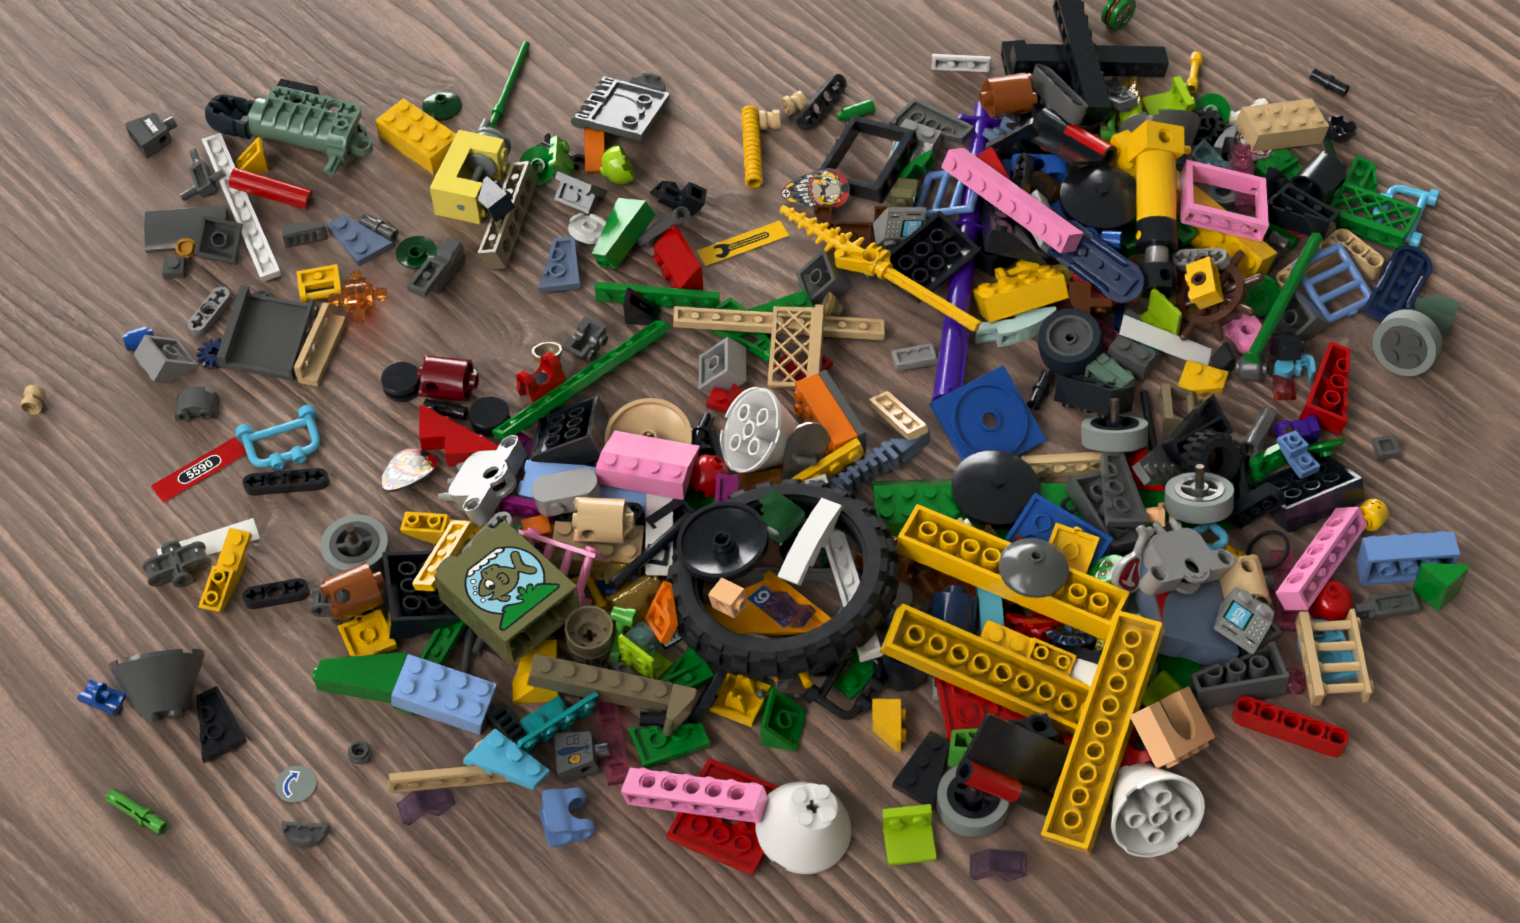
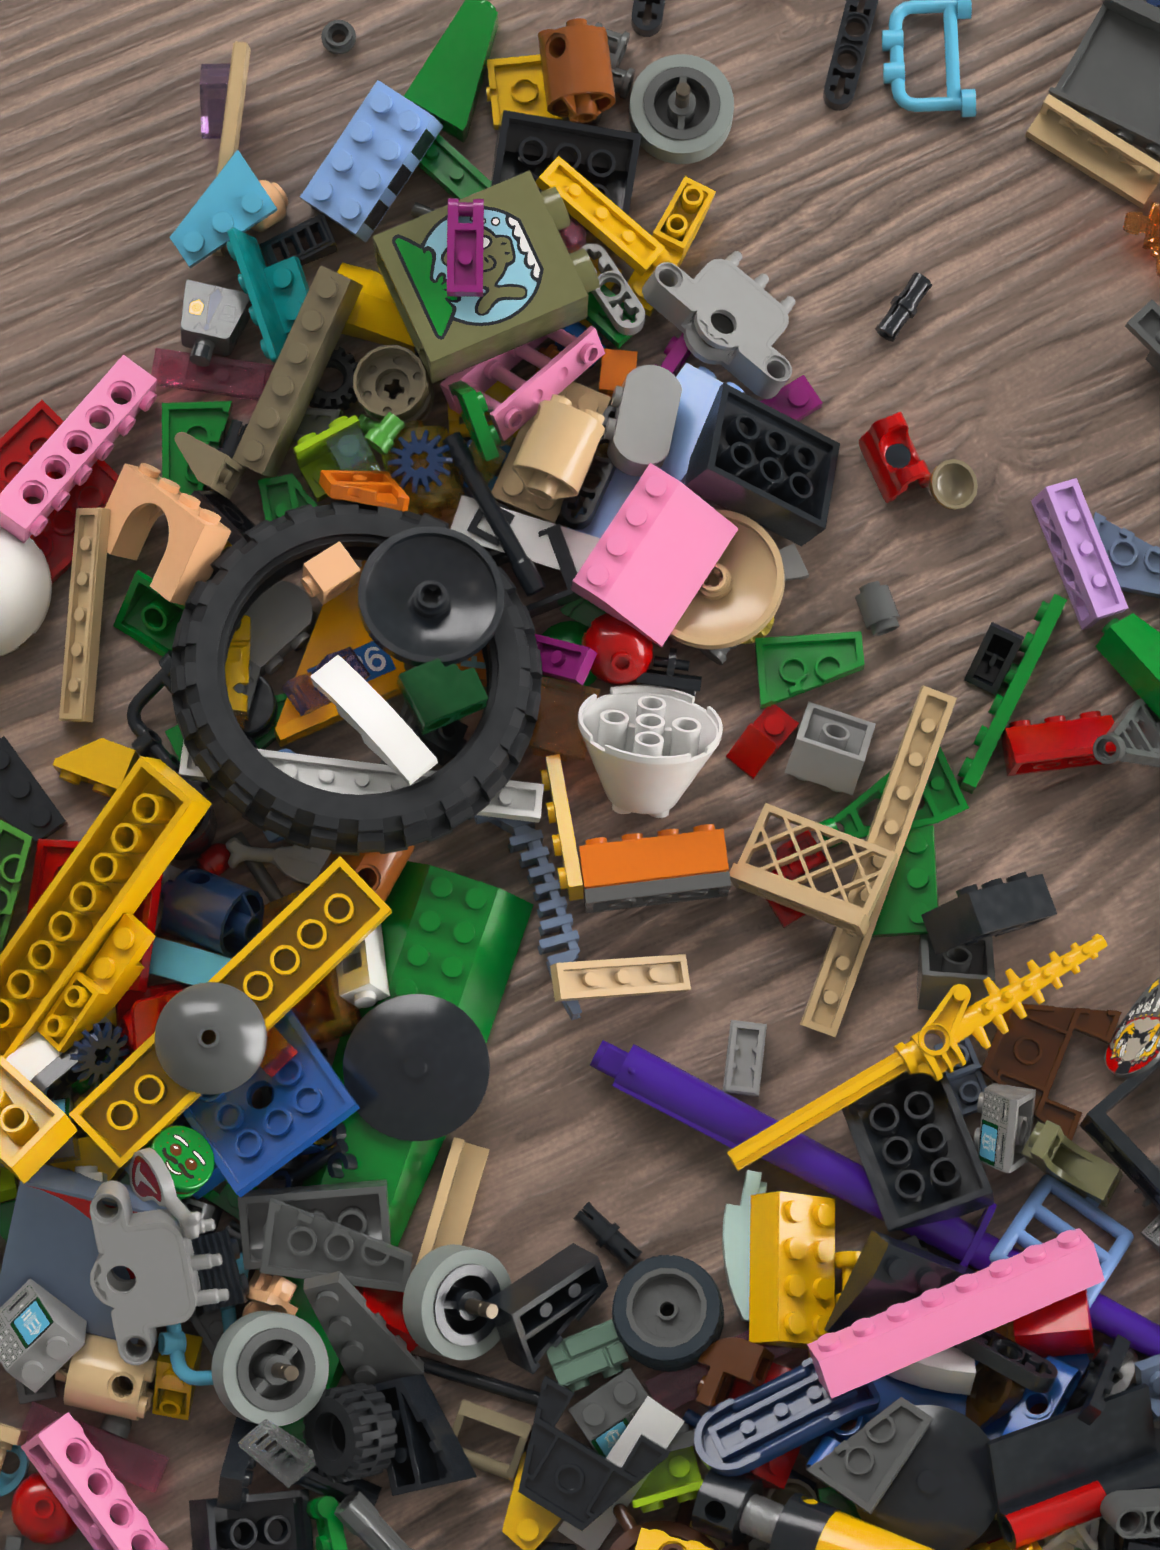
camera: 105 degrees right, 25 degrees up
(400, 381) = (980, 255): black head -> none
(407, 469) = (800, 218): shield -> none
(442, 432) = (826, 306): red slope -> none
(447, 378) = (949, 317): dark red cylinder -> none
(488, 414) = (863, 367): black head -> none
(496, 585) = (465, 248): none -> magenta plate
(558, 823) = (121, 262): medium blue piece -> none
(565, 284) = (1080, 553): none -> lavender fence
(575, 384) = (880, 523): green plate -> none
(587, 339) = (955, 550): dark grey cylinder -> none
(598, 568) = (474, 406): none -> green wing
(632, 368) = (878, 608): none -> dark grey brick
(640, 597) = (421, 475): none -> dark blue gear
(678, 391) = (804, 662): none -> green wing
(702, 430) = (719, 676): black axle -> none
(729, 684) = (194, 532): none -> light nougat arch
(742, 243) = (1090, 870): yellow sticker -> none
(788, 266) = (989, 911): none -> black wedge
(798, 758) = (84, 615): none -> tan tile
(804, 448) = (587, 797): flat silver shield -> none
(831, 305) = (889, 958): dark tan piece -> none
(921, 164) = (1137, 1221): green slope -> none
(993, 394) = (598, 1126): blue piece -> none
(1075, 545) = (237, 1121): yellow plate -> none
(1101, 212) = (873, 1456): none -> dark grey wing
(1178, 359) = (571, 1476): none -> black wing
(1242, 478) = (288, 1472): none -> clear slope
(1269, 532) = (163, 1482): black piece -> none

